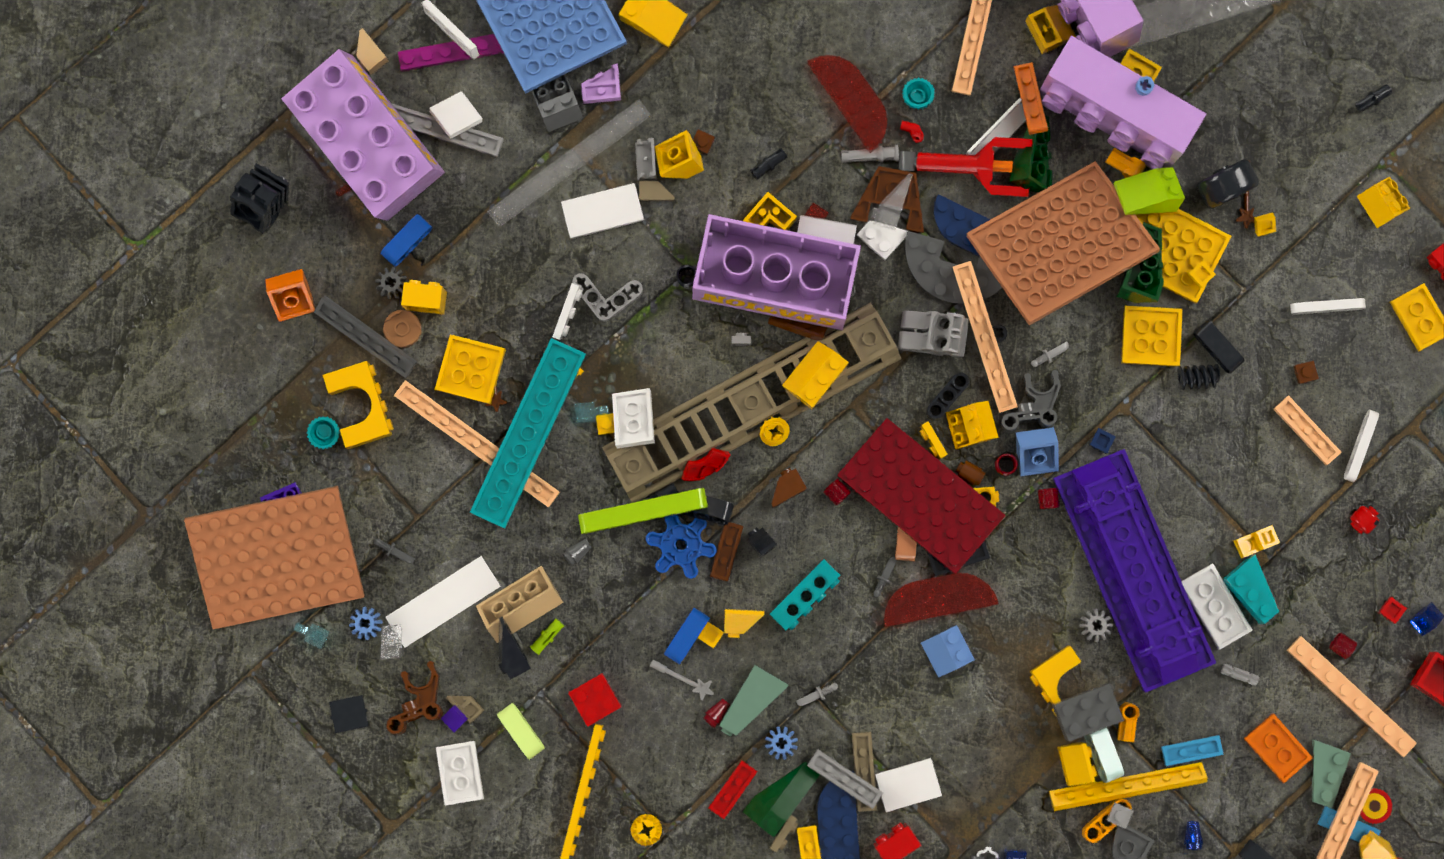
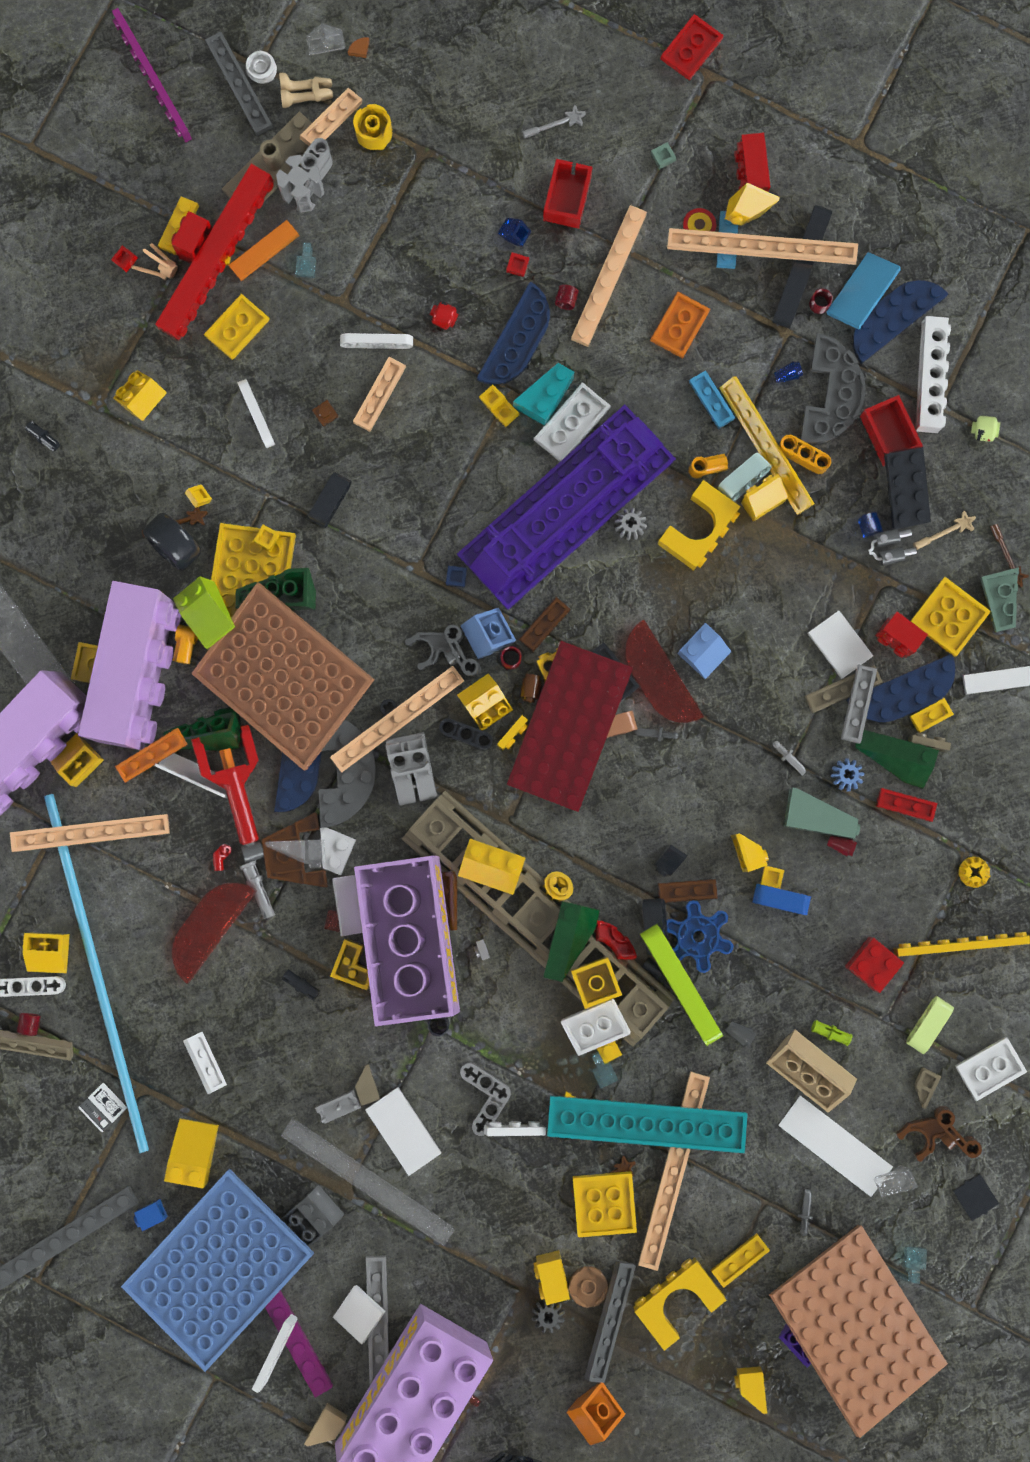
camera: 110 degrees left, 0 degrees up
(260, 443) = (751, 1386): none -> yellow slope
(323, 432) = (718, 1327): teal hat -> none
(365, 615) = (880, 1219): medium blue gear -> none
(374, 474) = (740, 1260): none -> yellow plate
(406, 240) = (500, 1316): blue beam -> none
(454, 718) = (942, 1093): dark purple tile -> none
(510, 653) = (863, 1060): black slope -> none
(602, 87) = (280, 1176): lavender wing -> none
(674, 431) = (596, 982): none -> yellow brick
(679, 157) = (325, 1075): yellow slope -> none
(700, 687) = (823, 869): light grey piece -> none
(703, 141) = (301, 1057): reddish brown plate -> none
(725, 425) = (571, 934): none -> dark green wedge
(729, 53) = (205, 1062): none -> white plate
(787, 487) = (606, 854): reddish brown slope -> none
(822, 570) = (732, 808): teal brick -> none
(836, 492) = (594, 806): dark red piece -> none
(918, 93) = (182, 864): teal hat -> none
(1026, 508) = (544, 624): none -> reddish brown tile
(1048, 498) = (528, 607): dark red piece -> none
(1049, 355) = (394, 654): light grey piece -> none
(1087, 712) = (716, 502): dark grey brick -> none
(1120, 815) = (797, 442): light grey plate -> none
(1150, 83) = (100, 643): medium blue bush -> none
(1151, 336) = (341, 564): yellow plate -> none
(1199, 376) = (363, 508): black piece -> none
(1240, 674) = (626, 380): light grey axle -> none
(1317, 584) = (518, 339): none -> dark blue plate
(1328, 771) = (686, 273): sand green wing -> none

